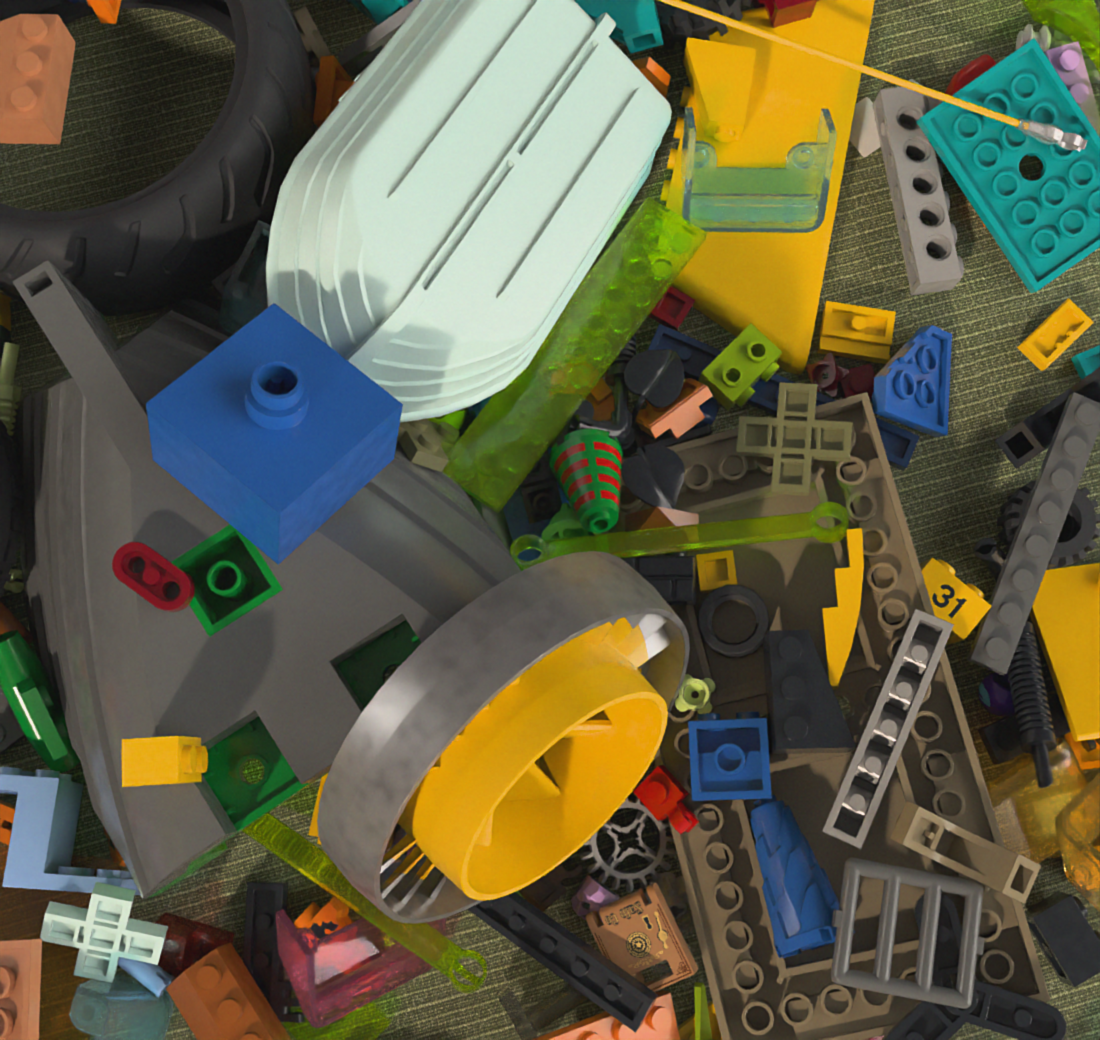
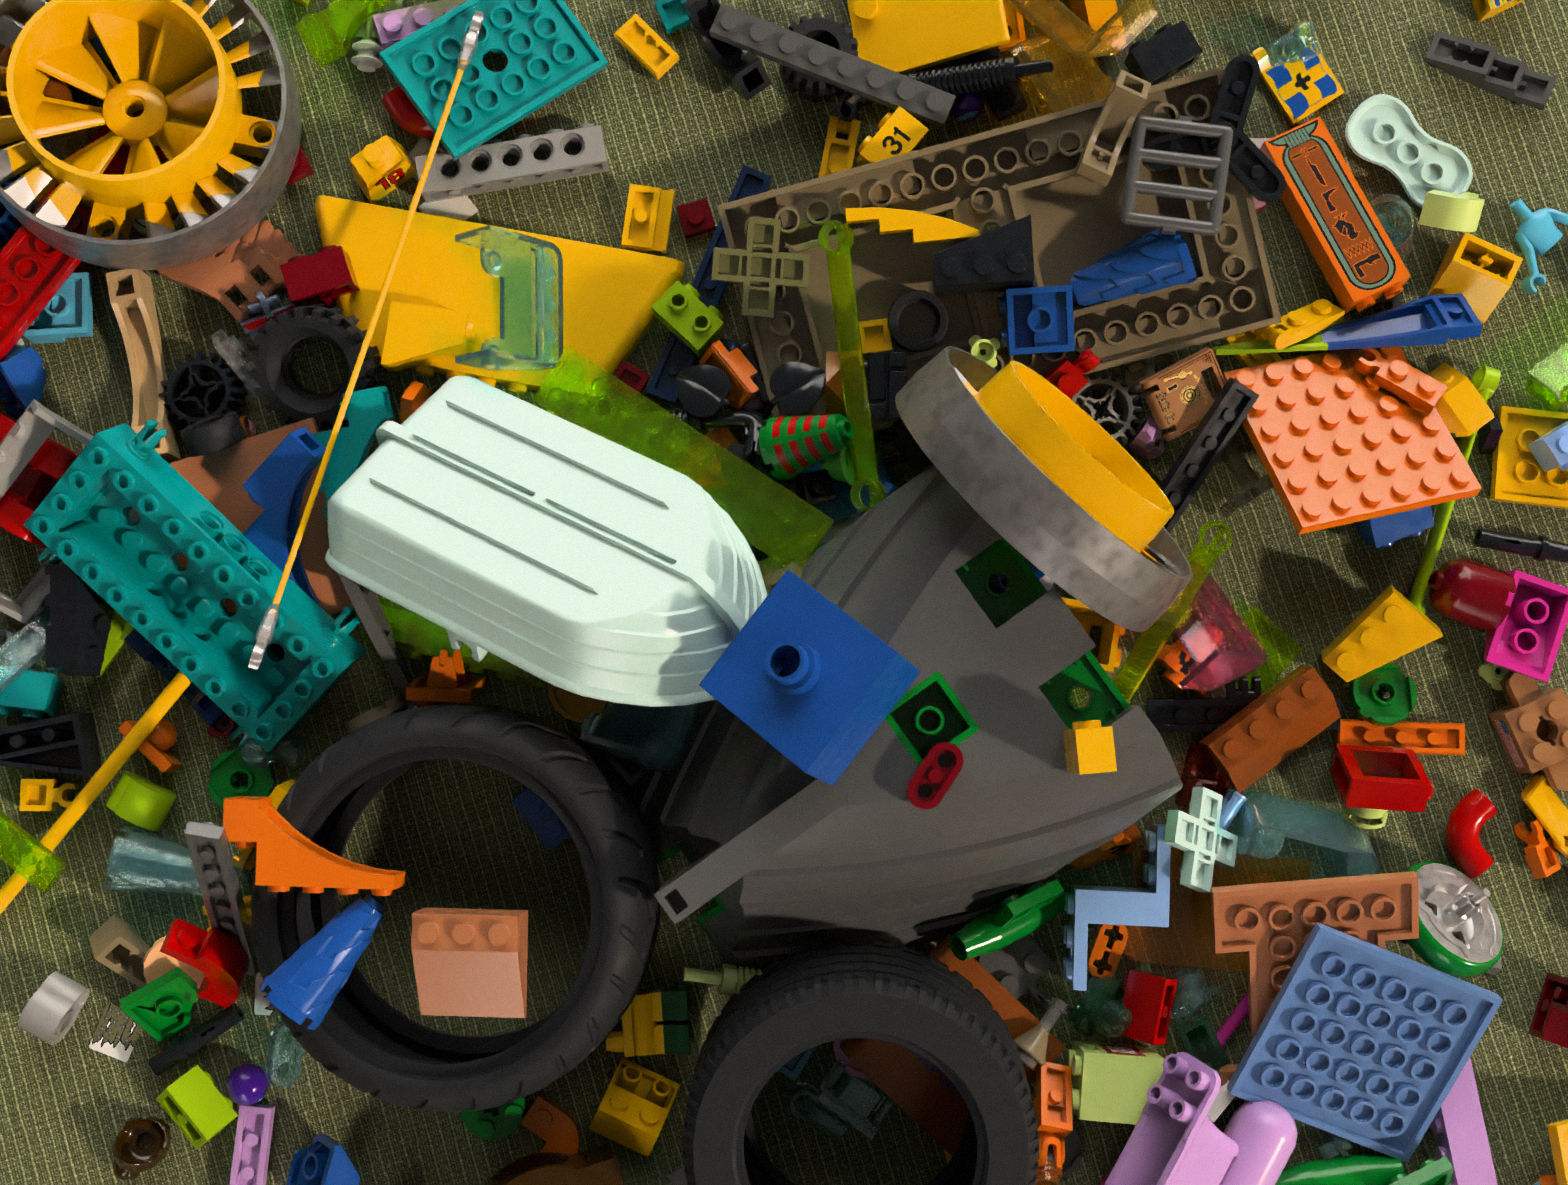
camera: 95 degrees left, 5 degrees up
(828, 366) = (697, 242): dark red plate -> none
(888, 728) = (1014, 189): light grey brick -> none
(909, 51) = (382, 168): none -> yellow torso
(917, 383) = (697, 165): blue plate -> none
(939, 543) = (838, 152): none -> yellow plate

